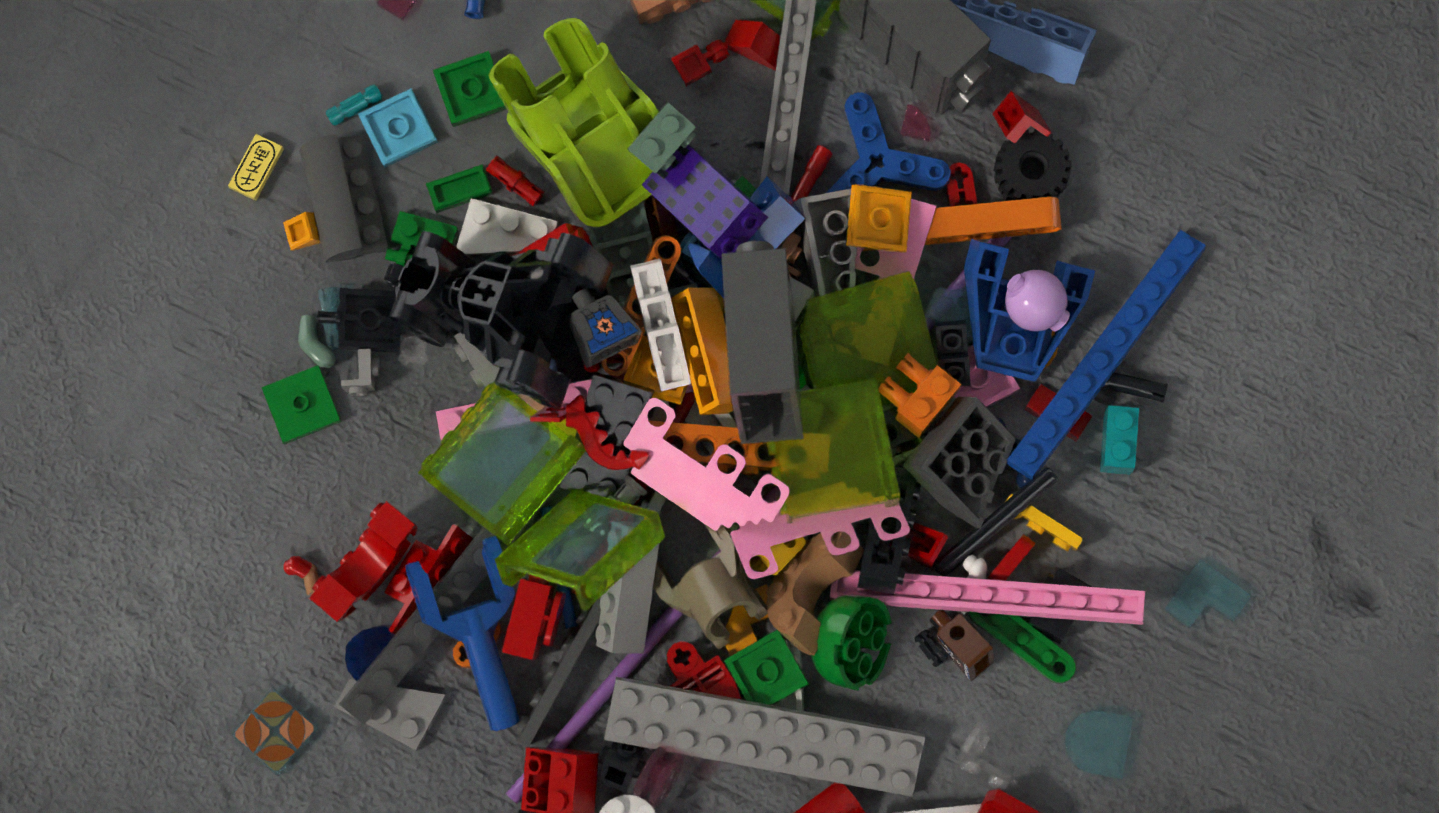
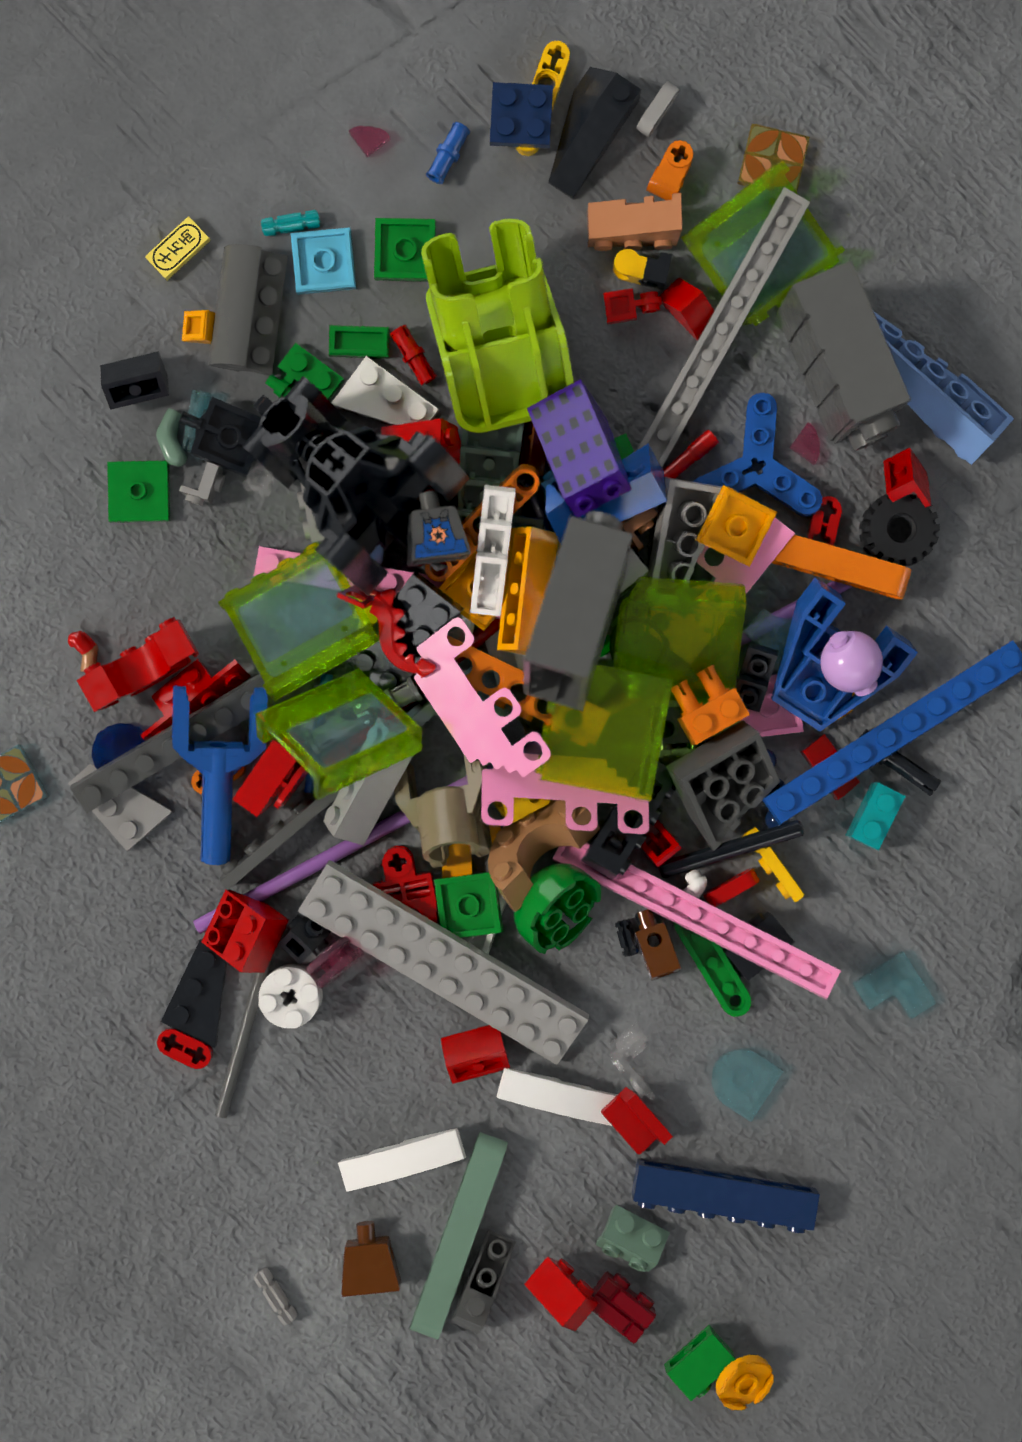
camera: 20 degrees right, 10 degrees up
(260, 301) = (134, 380): none -> black brick
(662, 138) = (562, 373): sand green bracket -> none
(698, 25) = (642, 270): none -> leg

